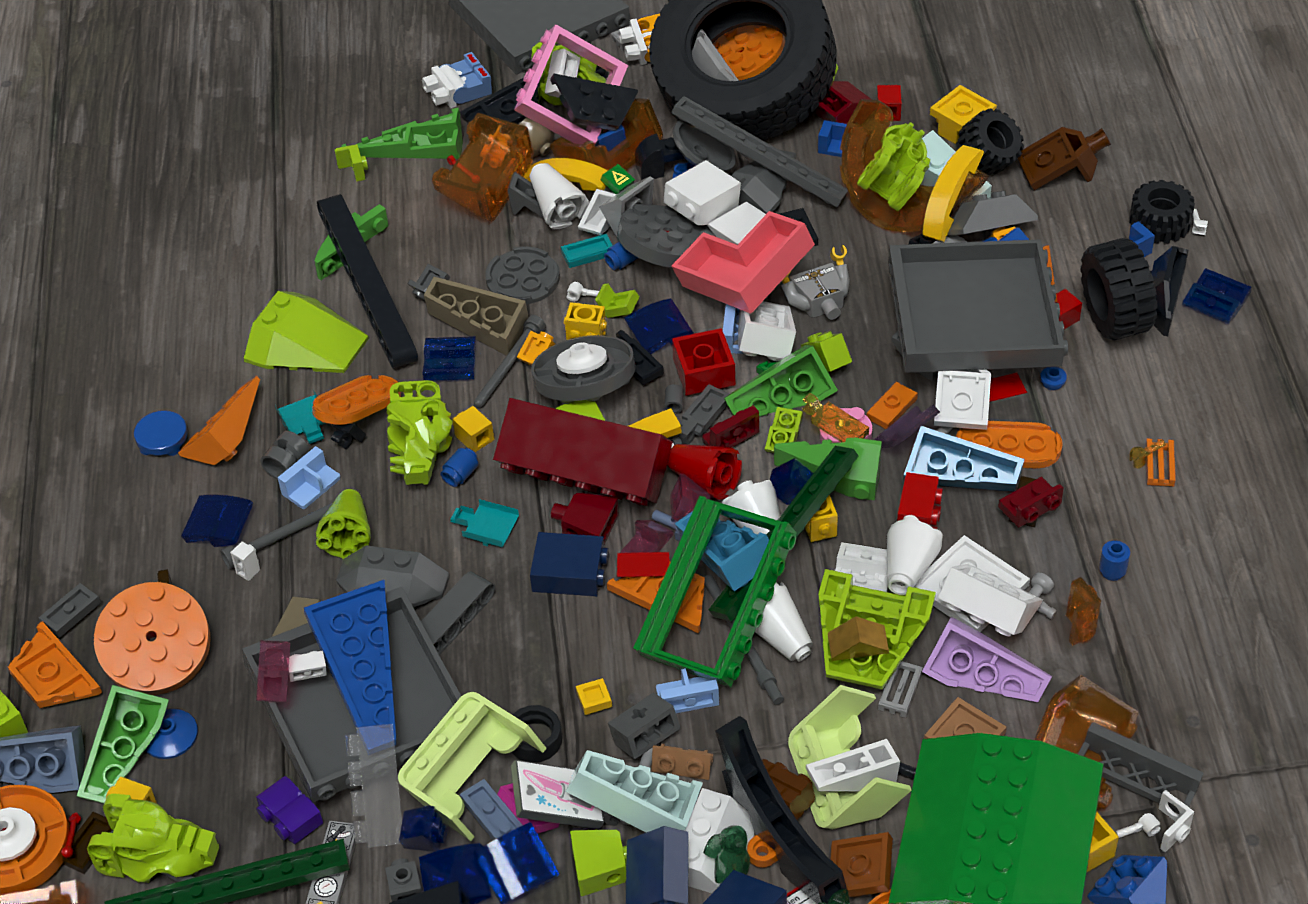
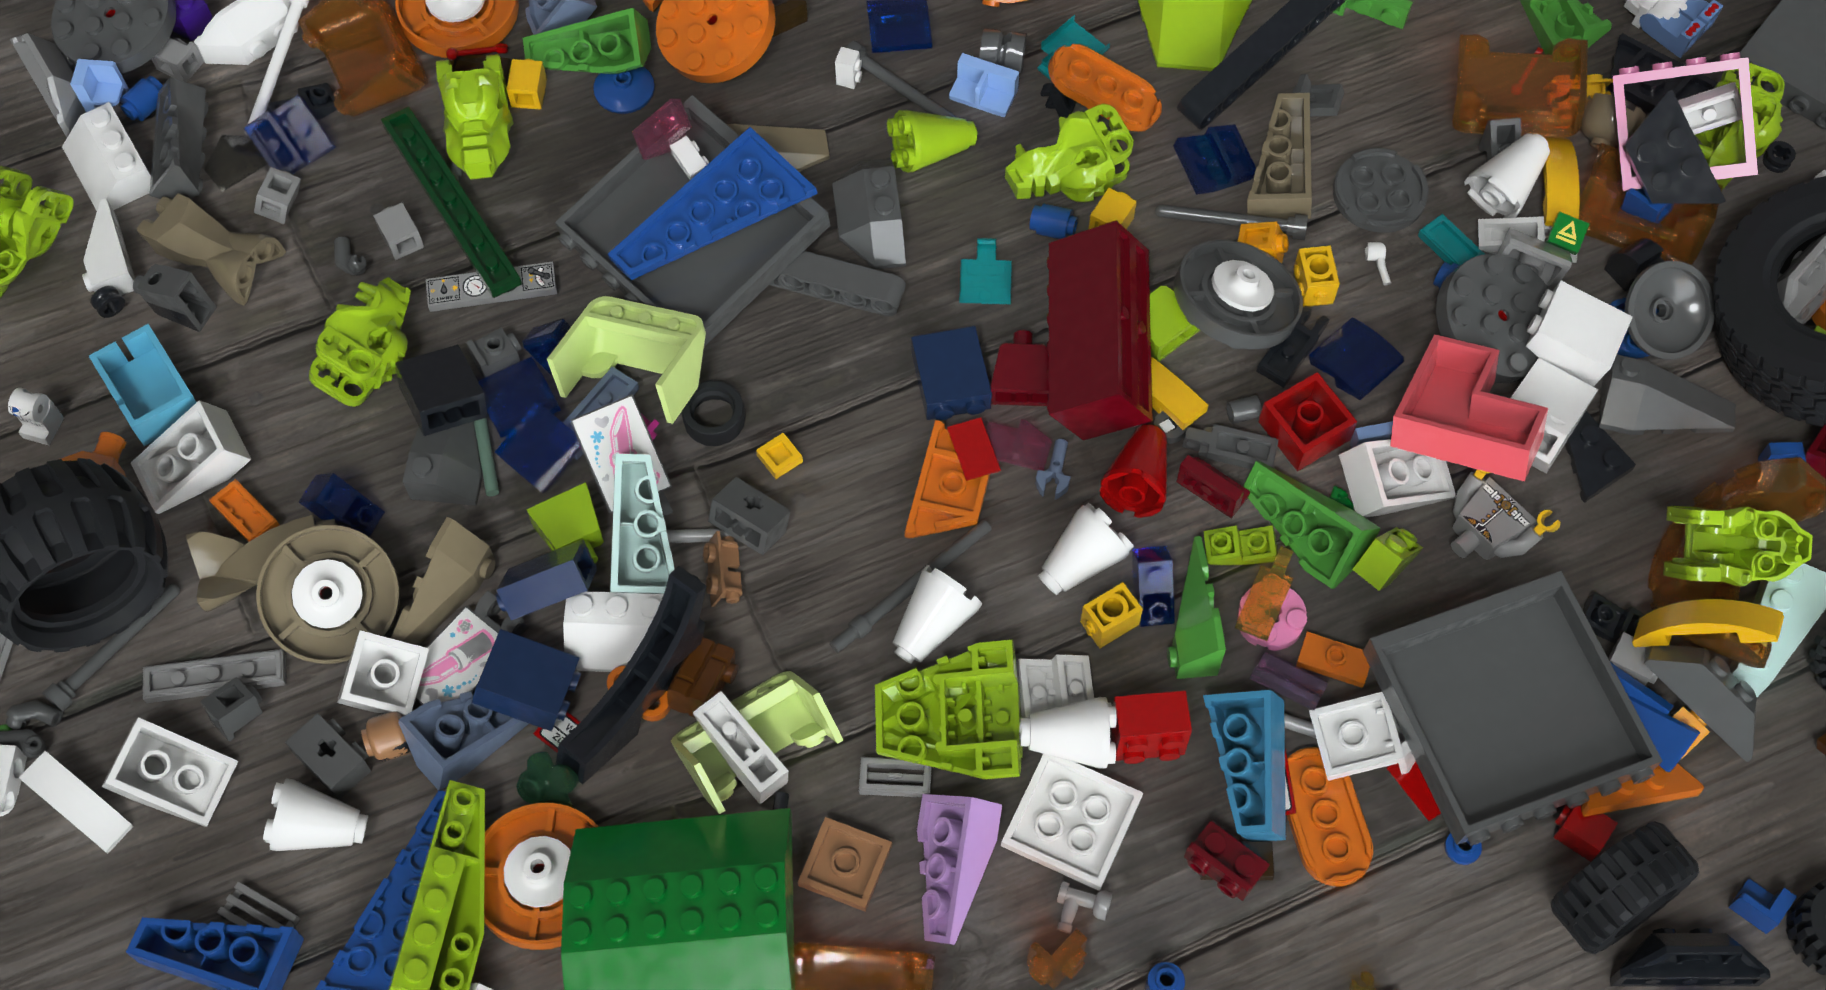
camera: 70 degrees right, 15 degrees up
(288, 810) = (539, 226): dark purple brick -> none
(379, 780) = (584, 278): clear windscreen -> none
(616, 303) = (1372, 298): lime bracket -> none
(681, 574) = (941, 569): green window -> none
(685, 496) = (1087, 465): clear pink slope -> none
(689, 693) = (816, 549): light blue panel -> none
(729, 852) = (597, 646): clear green plate -> none
(731, 551) = (1002, 520): dark azure wedge -> none
(760, 151) = (1689, 377): dark grey plate -> none
(797, 515) = (1054, 580): dark green plate -> none
(857, 639) = (922, 707): pearl gold slope -> none
(864, 862) = (626, 790): dark orange plate -> none
(988, 599) = (1041, 842): white slope -> none

